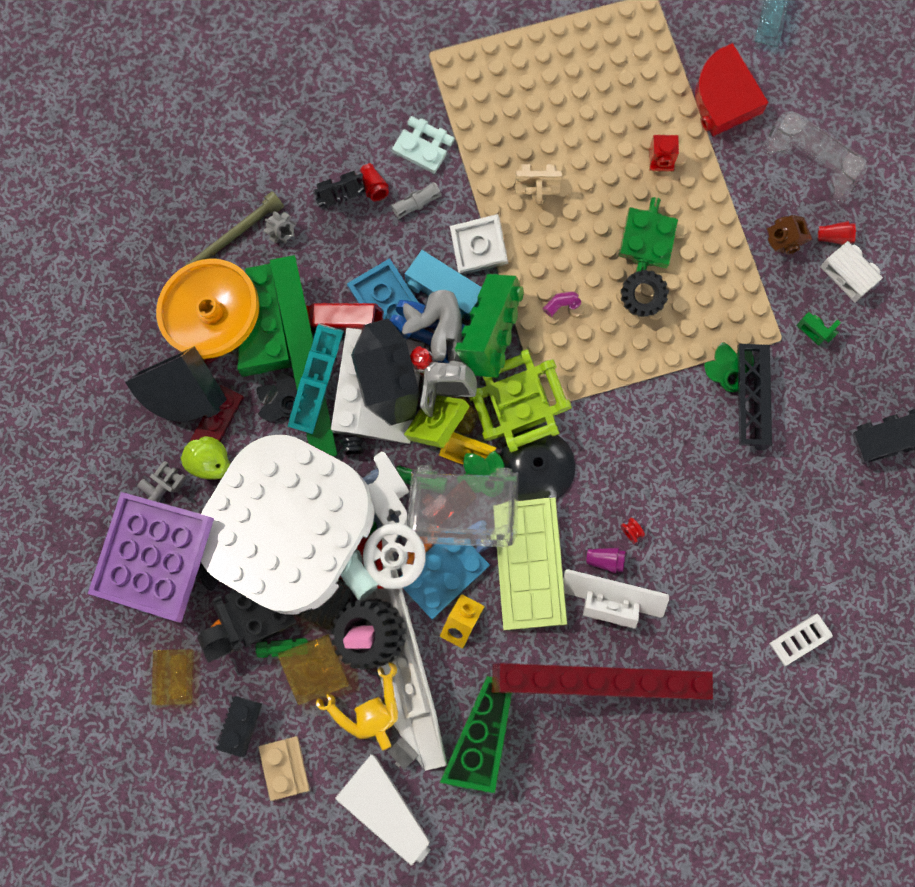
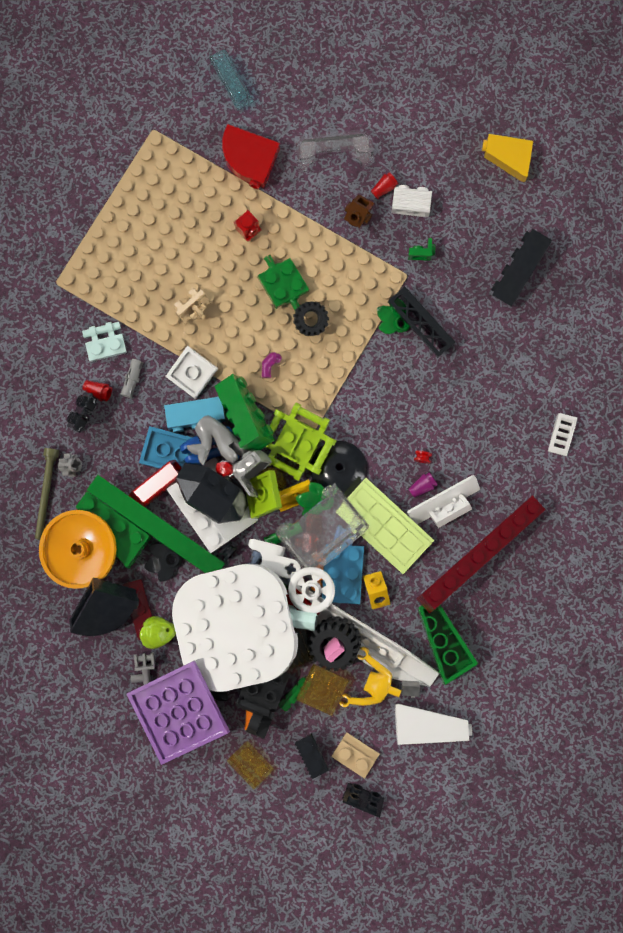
camera: 40 degrees left, 5 degrees up
(247, 821) = (362, 799): none -> black hinge
(315, 378) = (175, 532): teal slope -> none

